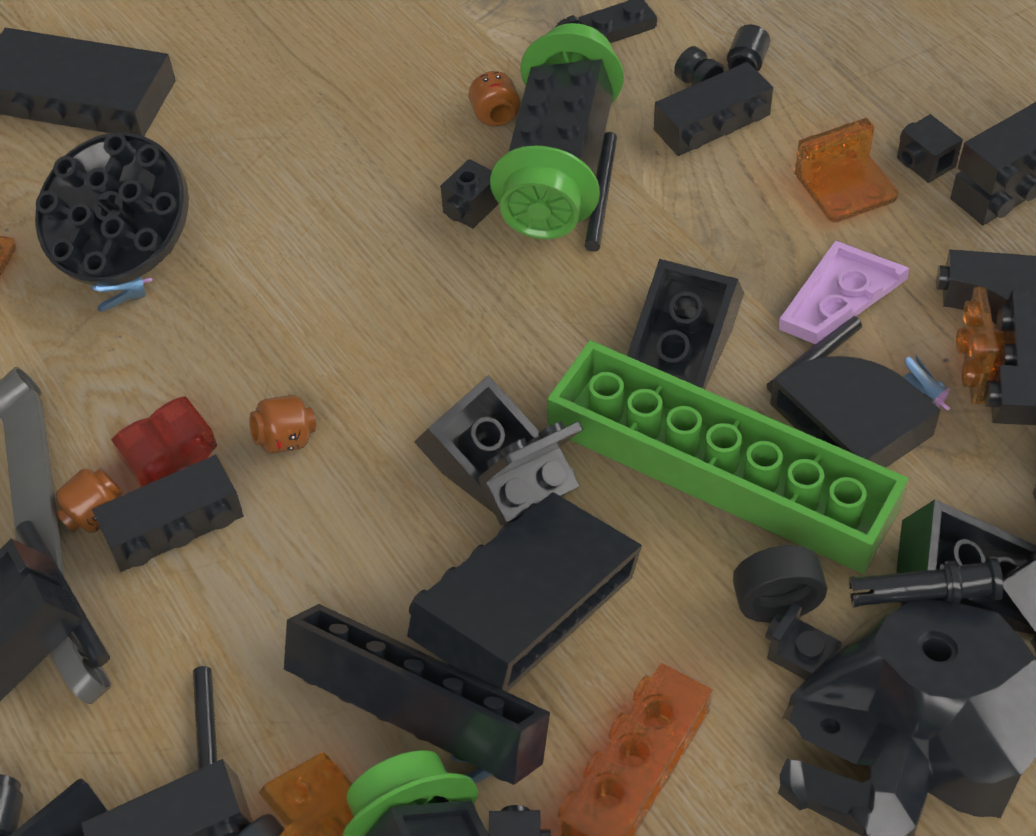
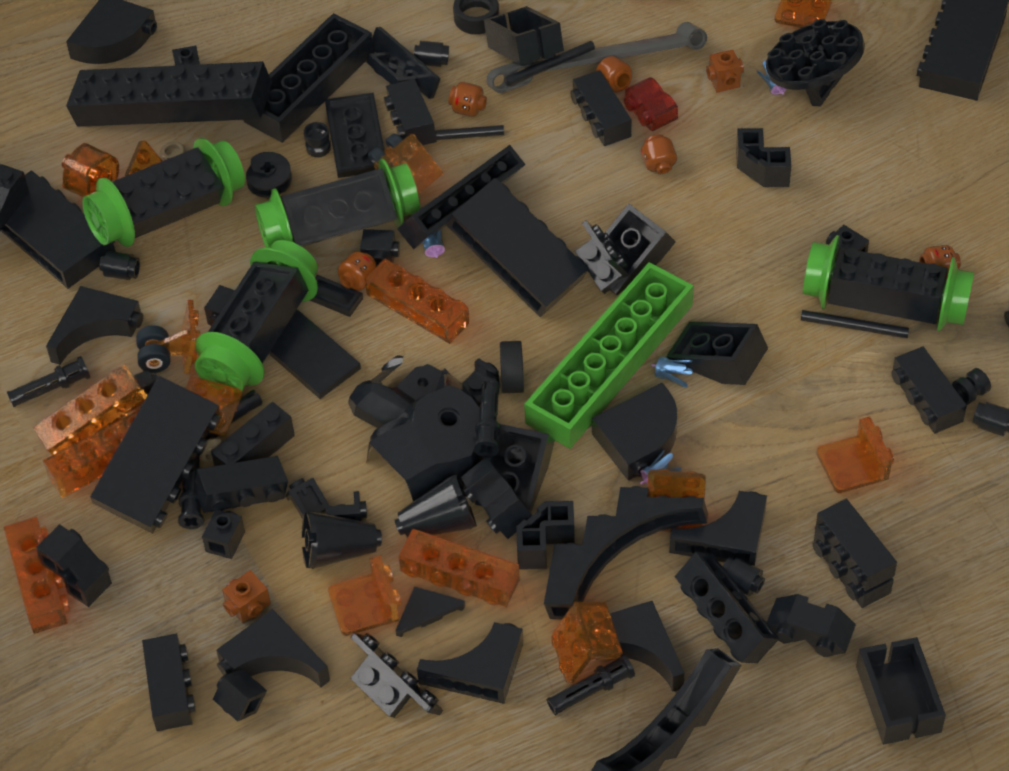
camera: 95 degrees right, 0 degrees up
(100, 346) = (725, 70): none -> dark orange brick
(133, 729) = (467, 99): none -> dark orange head
(299, 297) = (763, 164): none -> black brick
(734, 381) = (665, 367): none -> flat silver piece
(827, 344) = (700, 427): black bar -> none
(839, 289) = (746, 440): lavender wing -> none
(929, 148) = (883, 512): black brick -> none

